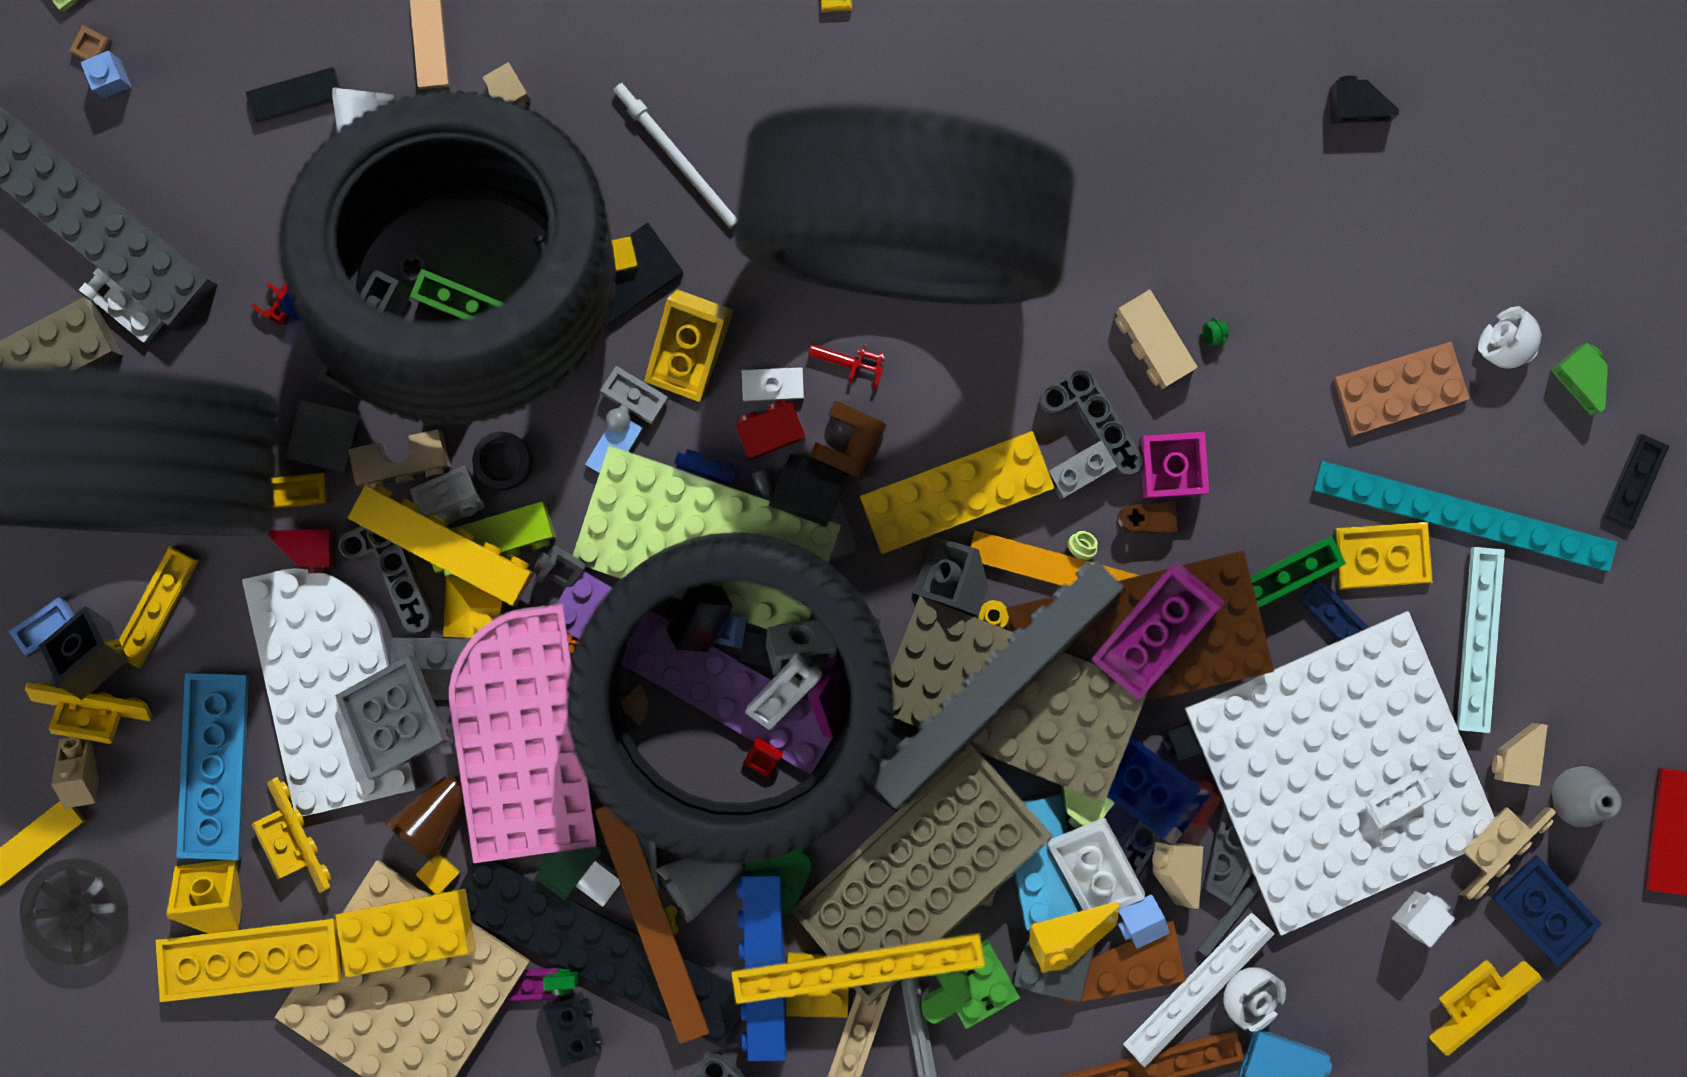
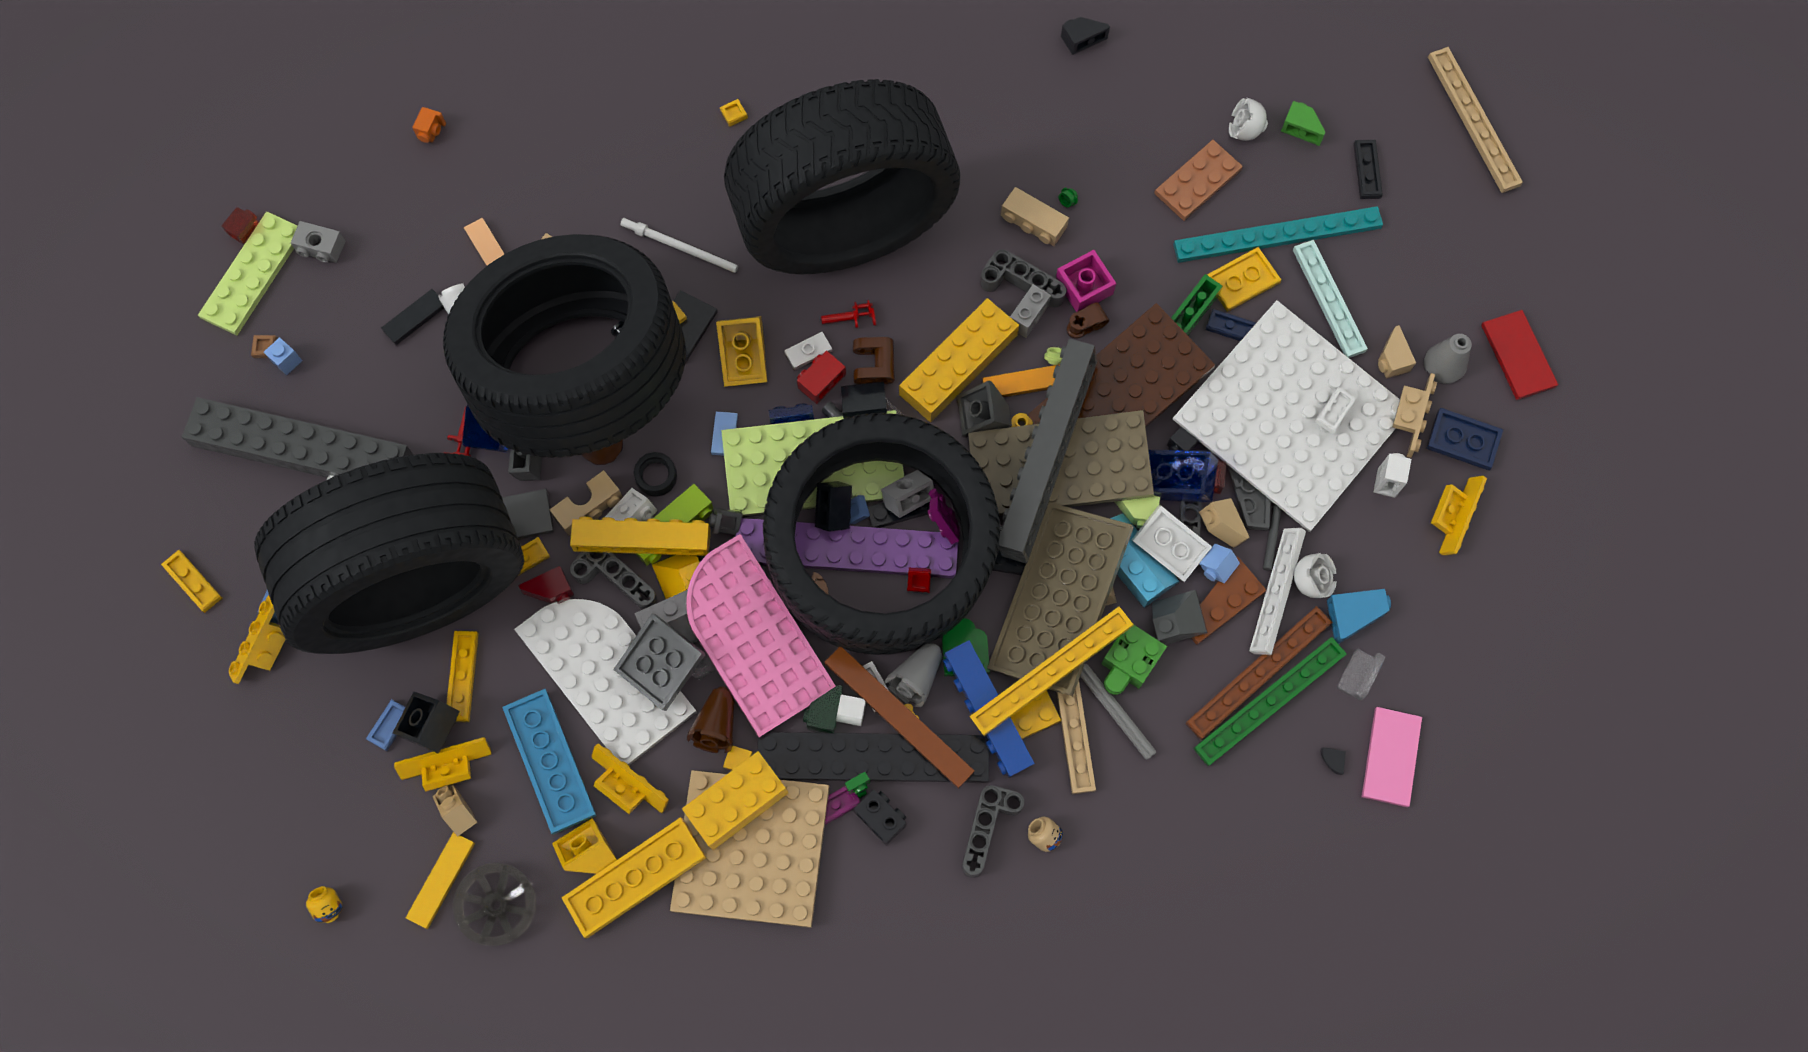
camera: 30 degrees left, 15 degrees down
(632, 397) = (721, 397): light grey plate -> none
(783, 692) = (911, 524): white plate -> none
(1068, 937) = (1178, 590): yellow slope -> none
(1157, 630) = (1129, 371): magenta slope -> none

